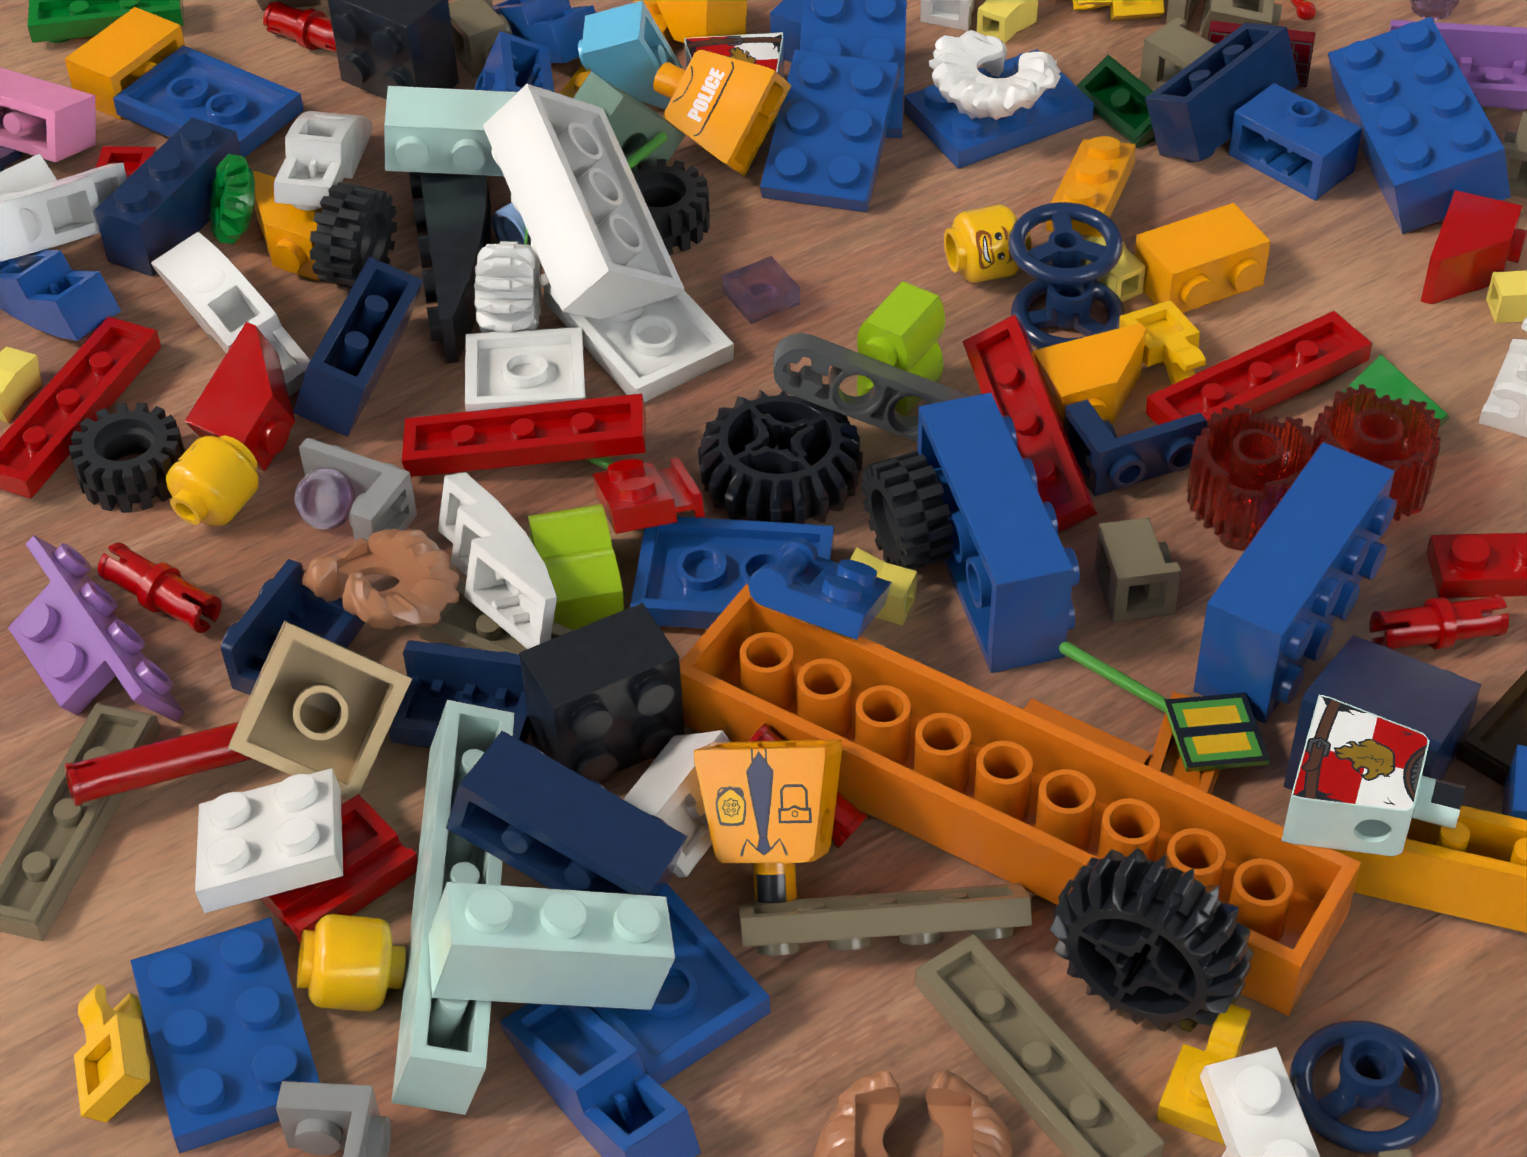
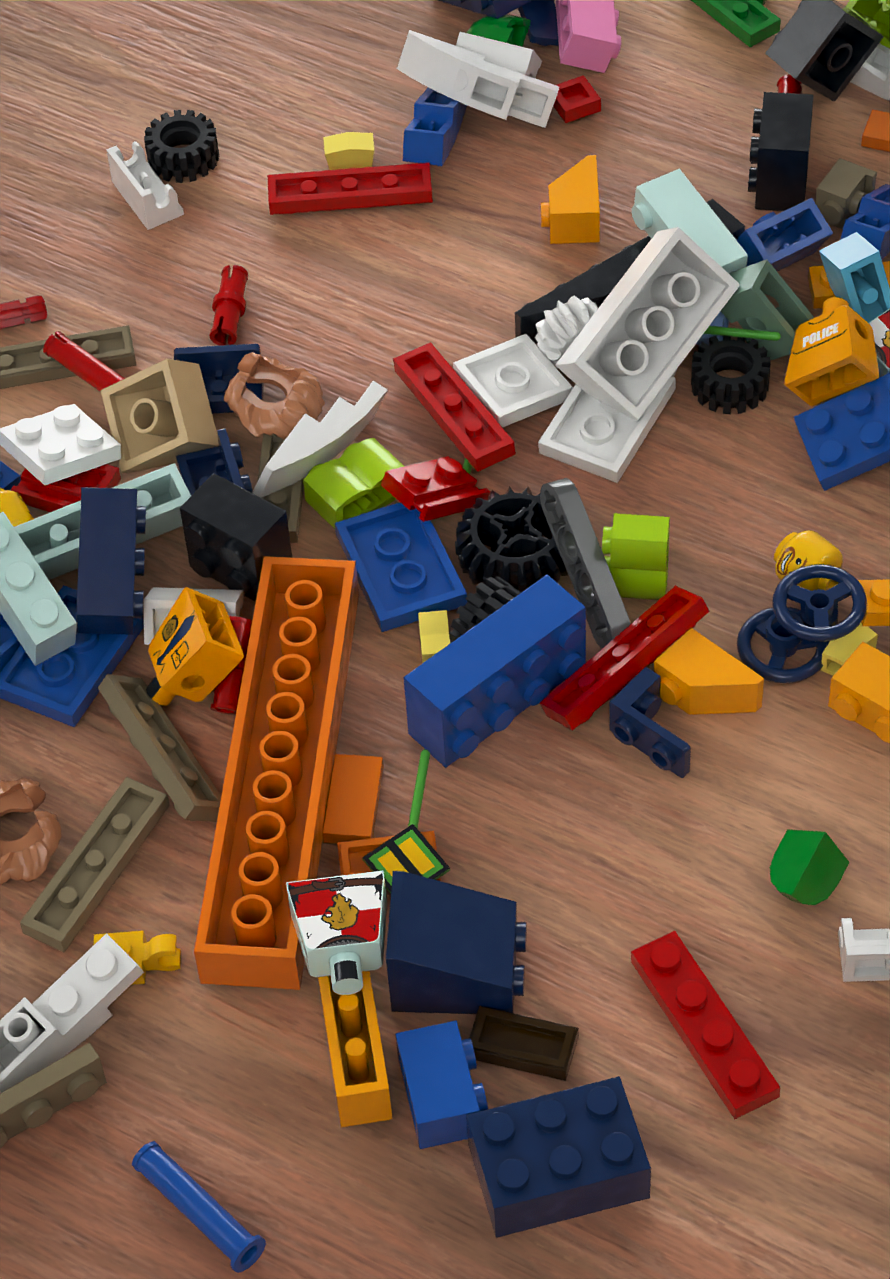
camera: 65 degrees right, 5 degrees up
(81, 642) = (173, 295): medium lavender bracket -> none
(119, 435) = (323, 221): black tyre -> none
(122, 56) = (678, 42): light orange brick -> none
(164, 196) = (559, 131): dark blue brick -> none
(212, 91) = (669, 102): blue plate -> none
(212, 480) = (319, 282): yellow head -> none
(225, 301) = (461, 213): white slope -> none
(232, 199) = (569, 156): green gear -> none
(247, 398) = (391, 261): red slope -> none
(319, 154) = (621, 169): white slope -> none
(325, 498) = (343, 340): clear purple plate -> none
(350, 230) = (567, 217): black tyre -> none
(357, 346) = (472, 286): dark blue brick -> none
(381, 489) = (352, 371): light grey bracket -> none
(761, 289) = (681, 463): plate -> none
(837, 597) = (375, 613): blue plate -> none
(1135, 571) = (529, 767): dark tan brick -> none
(1152, 940) = (177, 870): black gear -> none
(1168, 339) = (781, 703): yellow plate -> none
(1244, 471) = (653, 801): clear red brick -> none
(1266, 372) = (781, 778): red plate -> none
(1296, 581) = (551, 851): blue brick -> none
(1377, 1054) = (163, 1016): dark blue piece -> none
(1388, 435) = (720, 865): clear red brick -> none
(1439, 622) = (587, 961): red pin -> none

